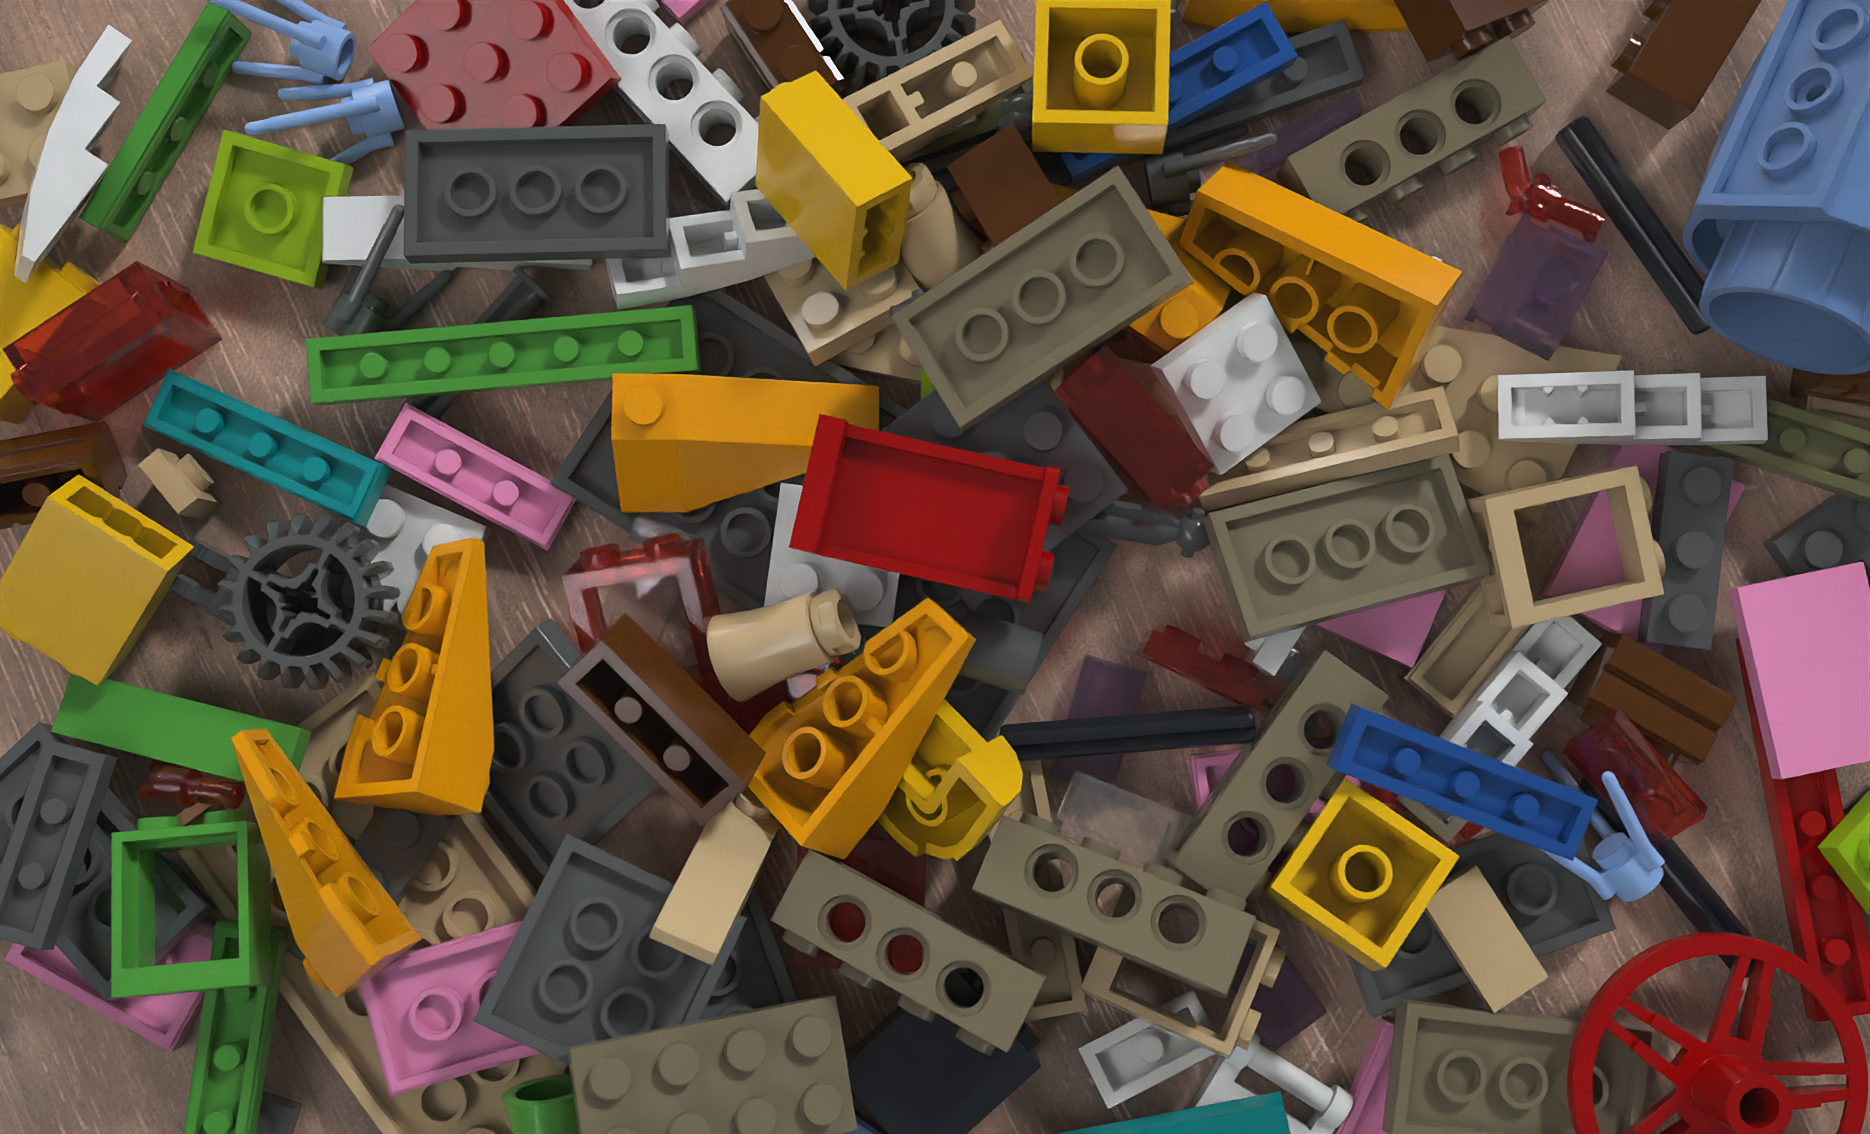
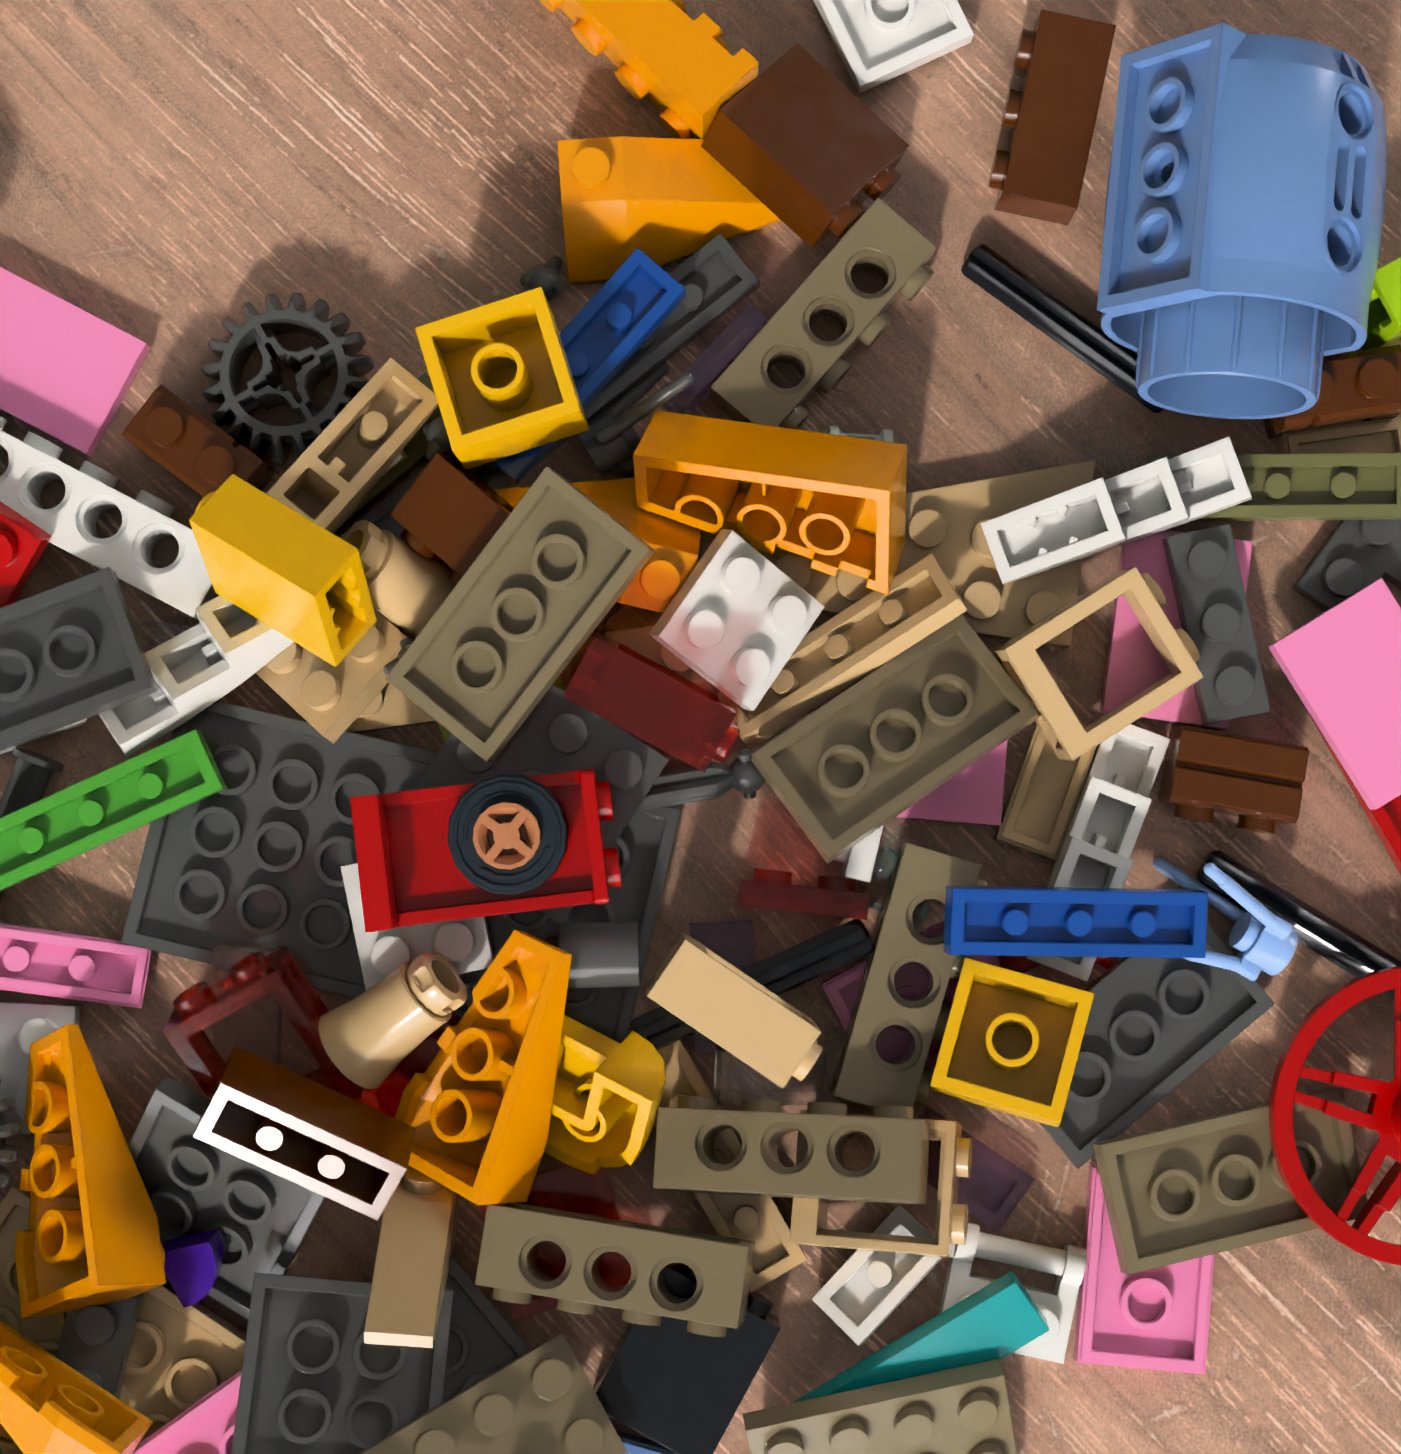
camera: 25 degrees left, 0 degrees up
(512, 806) = (194, 1264): none -> dark purple tile
(716, 437) = (262, 847): light orange wedge -> none
(943, 484) = (492, 852): none -> black wheel
(1112, 750) = (735, 1012): none -> tan window
(1484, 939) = (1151, 1058): tan tile -> none
(1536, 286) = (990, 423): clear purple plate -> none
(1542, 198) = (968, 337): clear red piece -> none
(1653, 788) = (1251, 857): clear red plate -> none

